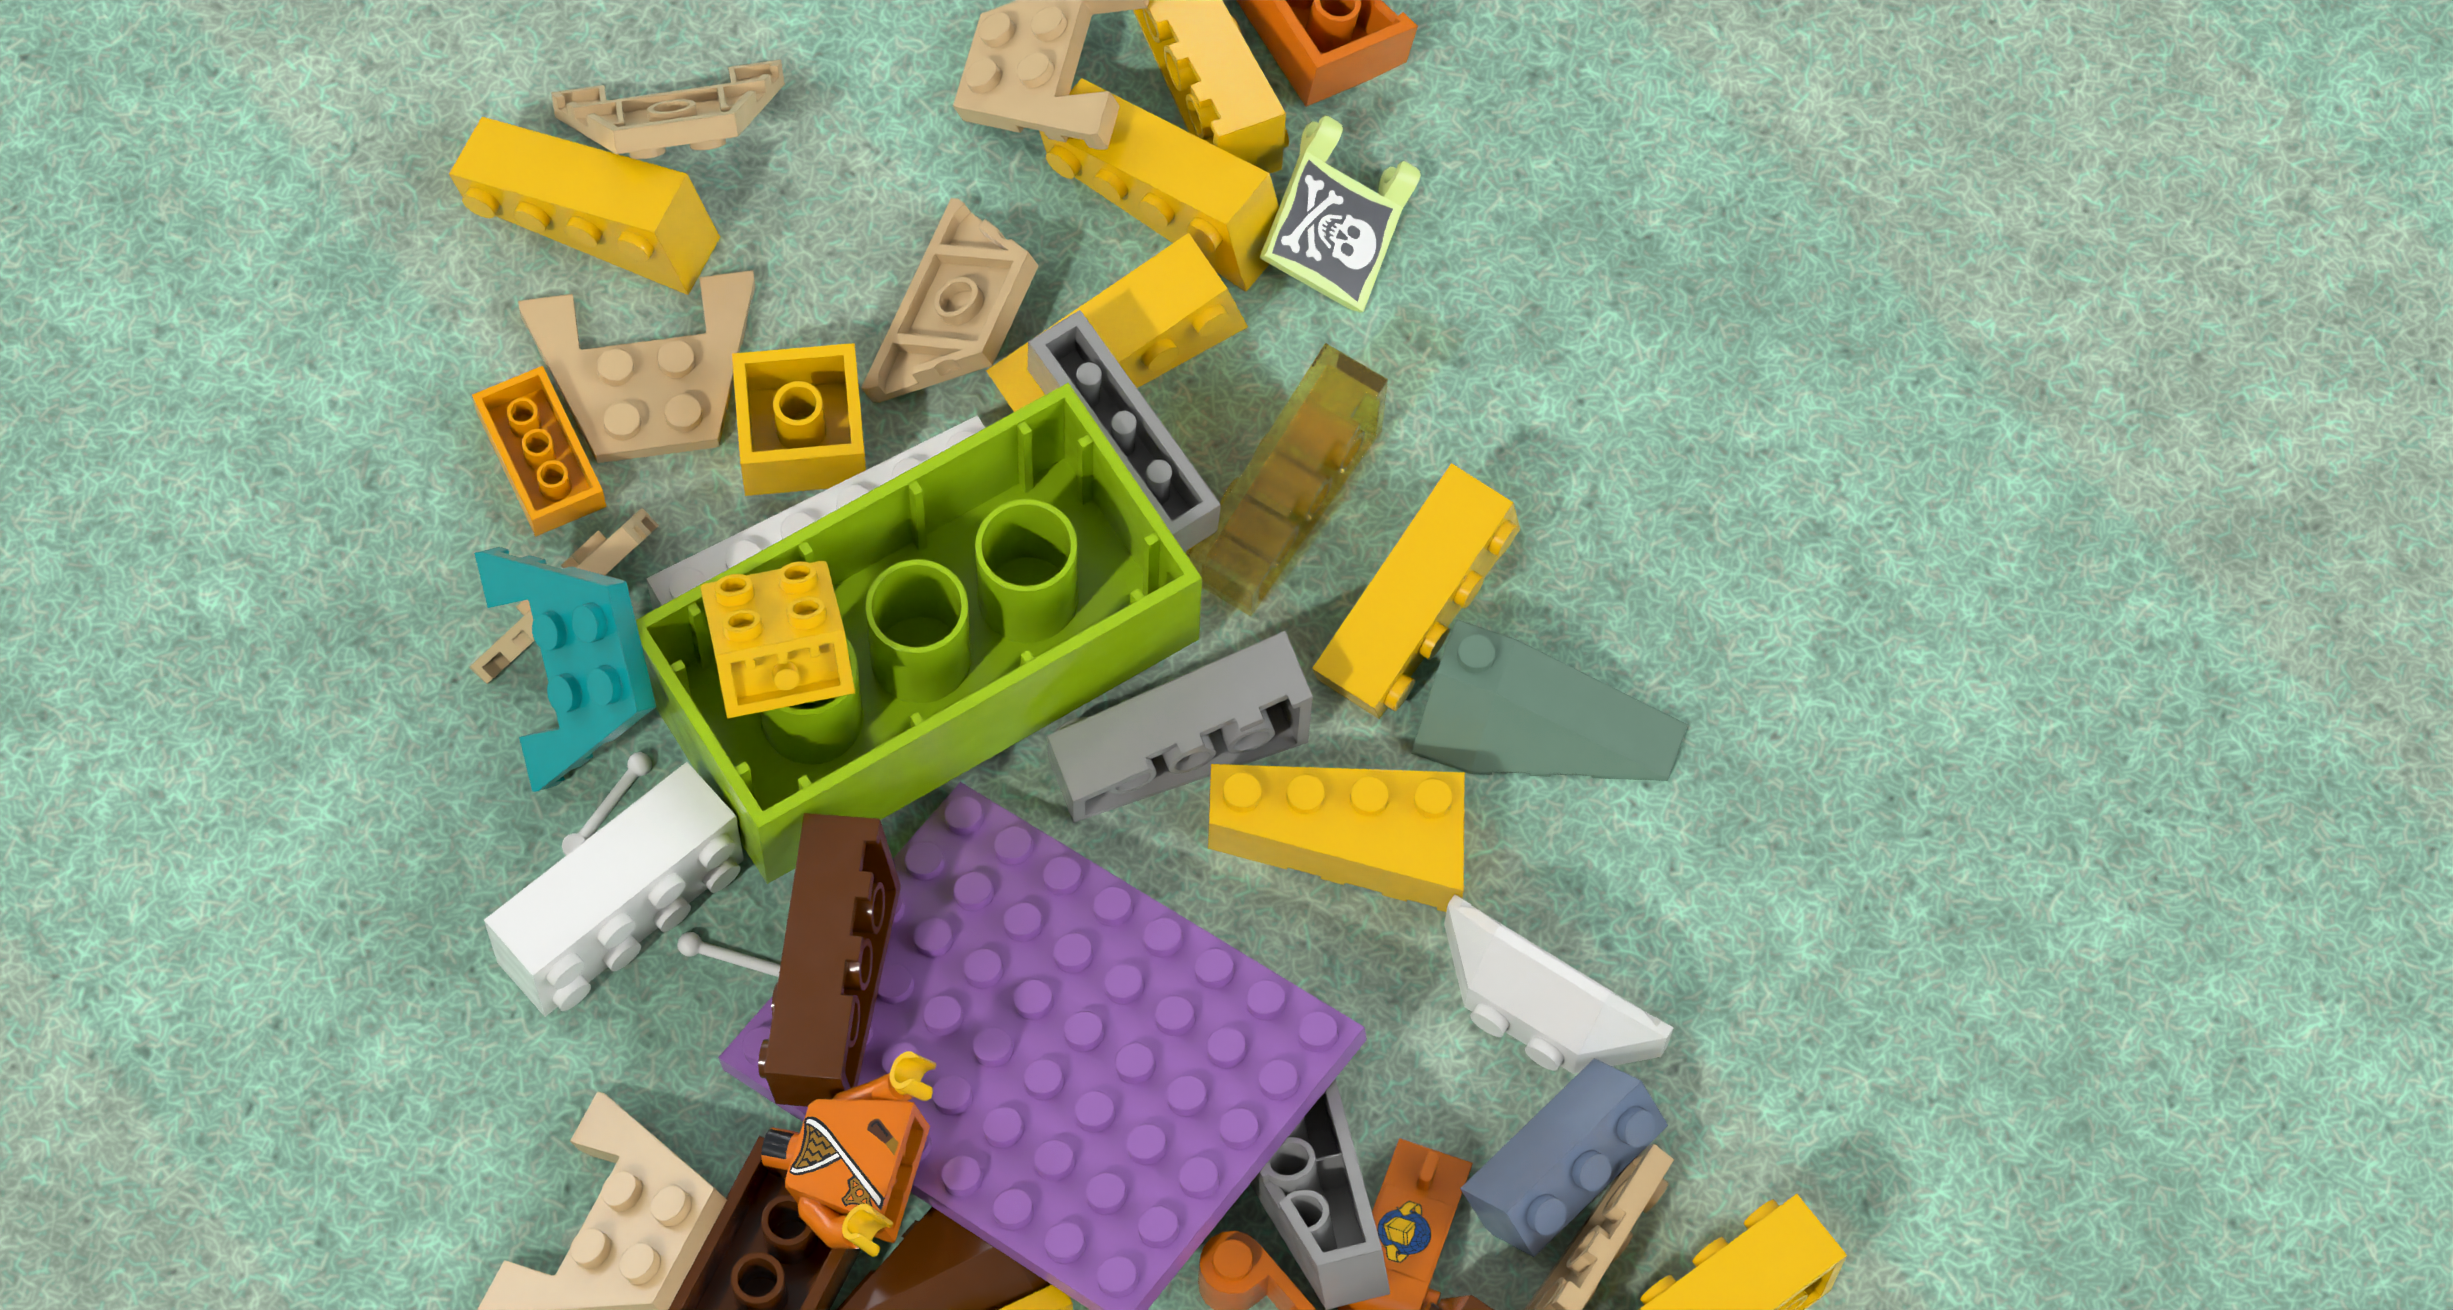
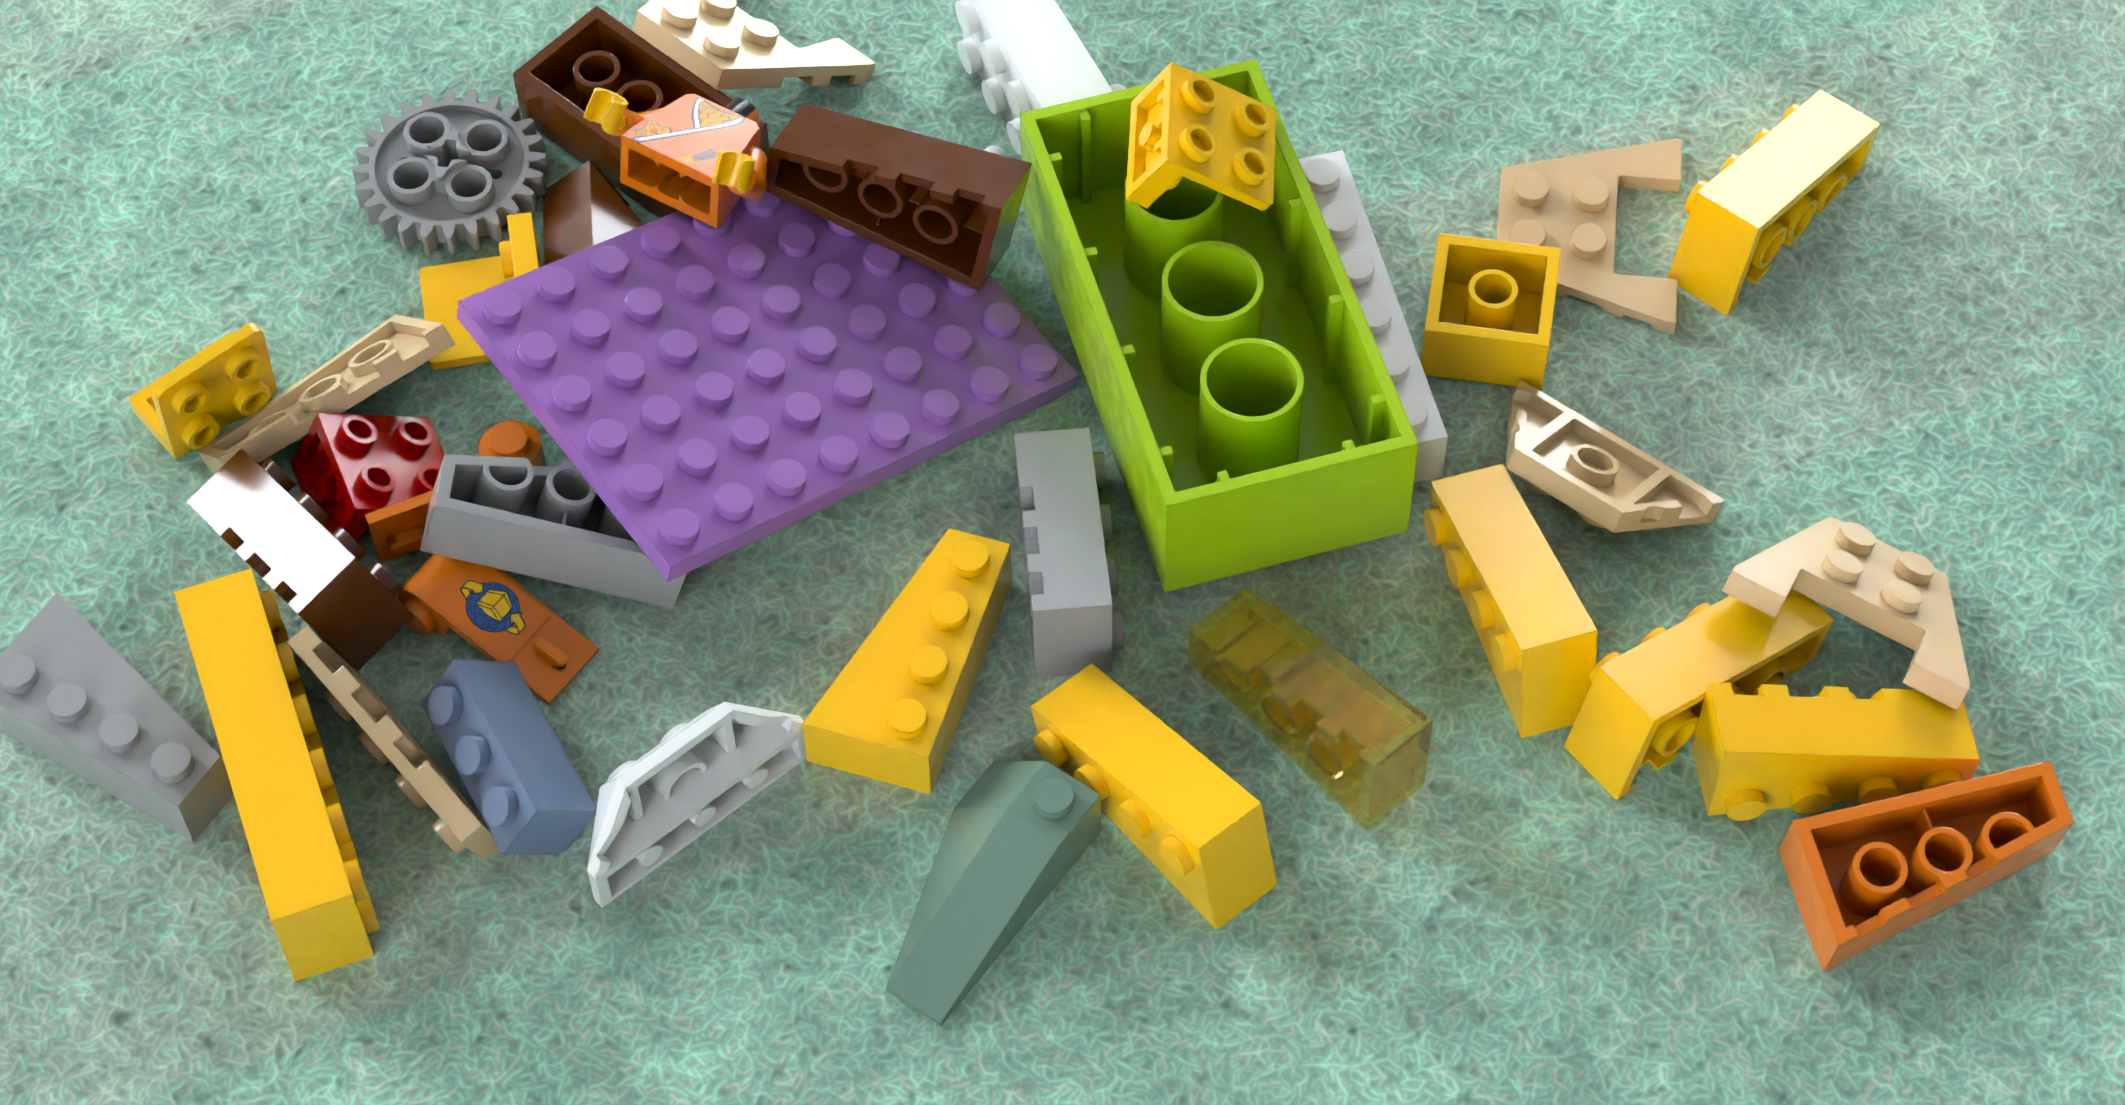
camera: 110 degrees right, 10 degrees down
(539, 451) = (1515, 125): light orange piece -> none
(588, 654) = (1280, 37): teal wing -> none
(595, 555) = (1366, 113): tan wing -> none
(671, 118) = (1837, 260): tan wing -> none
(1078, 356) = (1372, 520): light grey brick -> none
(1333, 227) = (1610, 822): flag -> none

